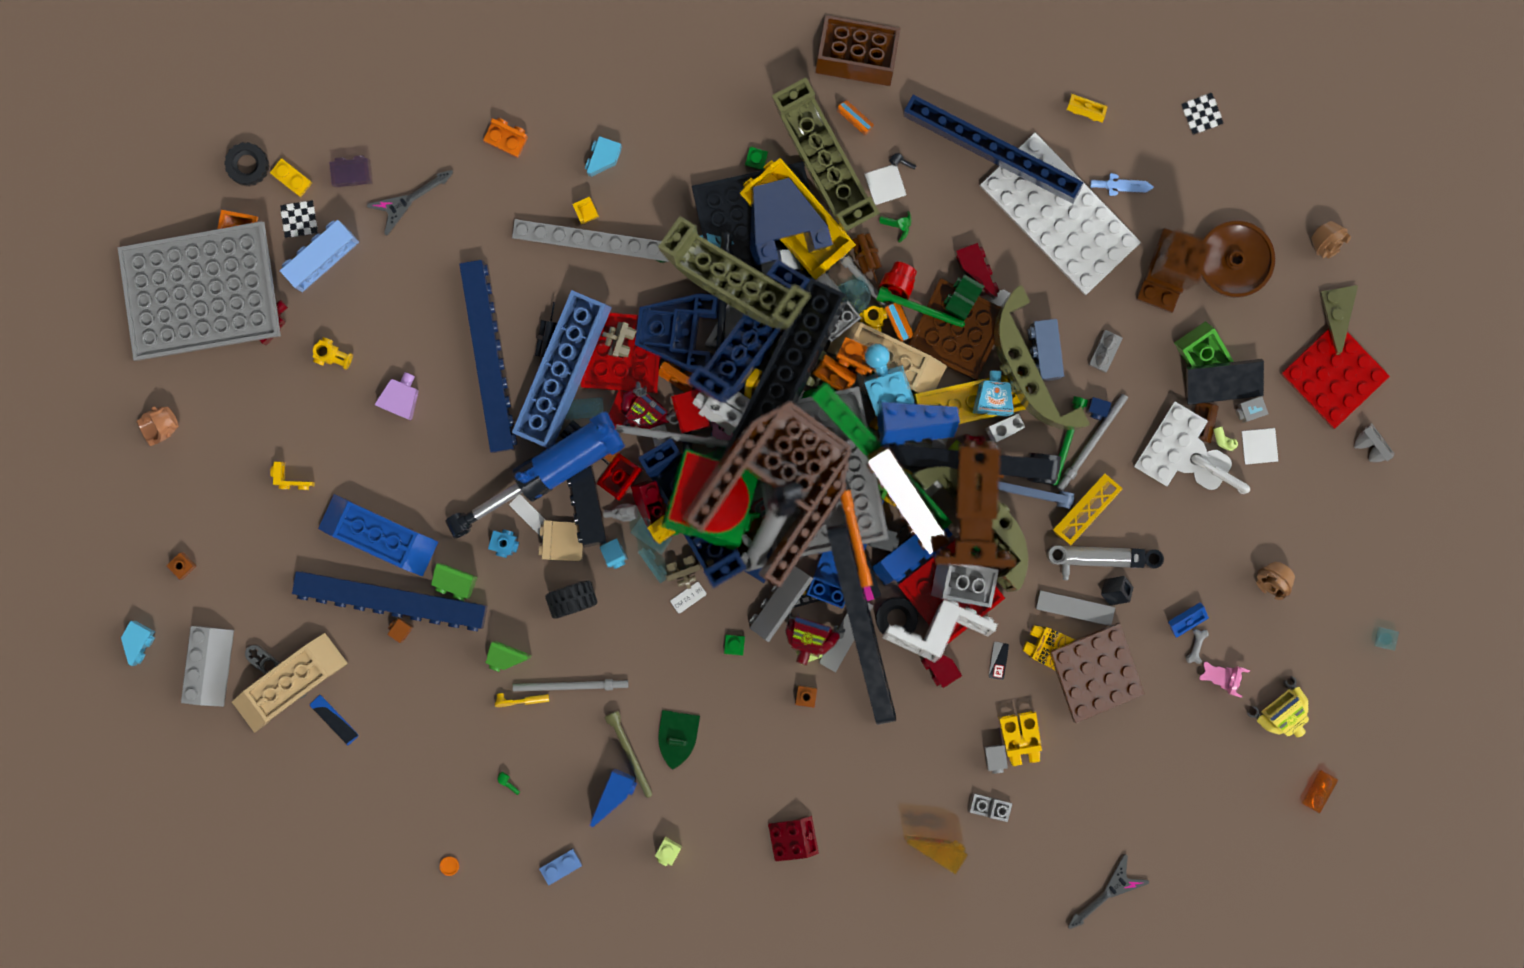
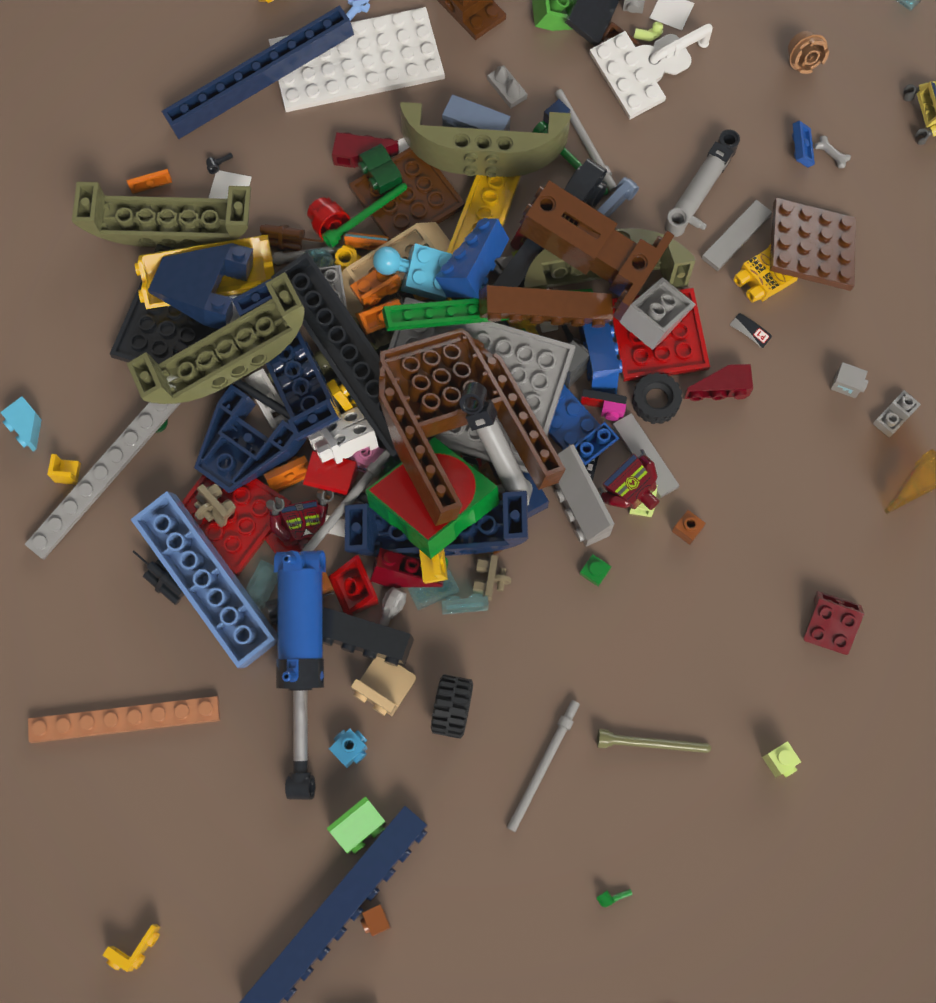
camera: 60 degrees left, 15 degrees down
(332, 354) = (33, 820): yellow connector -> none
(378, 535) = (255, 883): blue slope -> none
(399, 397) = (125, 772): lavender torso -> none
(434, 372) = (123, 719): none -> nougat plate
(487, 356) = (144, 652): dark blue brick -> none
(502, 702) = (520, 851): yellow piece -> none
(503, 656) = (472, 816): bright green slope -> none
(528, 513) = (335, 706): white sticker -> none
(560, 867) = (738, 891): medium blue plate -> none
(613, 554) = (430, 636): medium azure slope -> none
(616, 791) = (690, 781): blue slope -> none
(677, 736) = (660, 683): dark green shield -> none
(688, 597) = (519, 590): white sticker -> none
(756, 158) = (126, 286): green plate -> none
(857, 50) = (90, 143): reddish brown slope -> none
(861, 624) = (645, 423): black beam -> none
(863, 570) = (594, 385): orange piece -> none
(902, 223) = (277, 190): green plant -> none
(940, 630) = (695, 354): white bracket -> none
(994, 397) = (492, 189): medium azure torso -> none
(1005, 428) = (526, 196): white leg -> none
(1021, 743) = (840, 343): yellow hips -> none
(1083, 506) = (643, 177): yellow fence -> none
(1117, 590) = (741, 189): black panel -> none
(1228, 678) = (877, 140): bright pink hair -> none

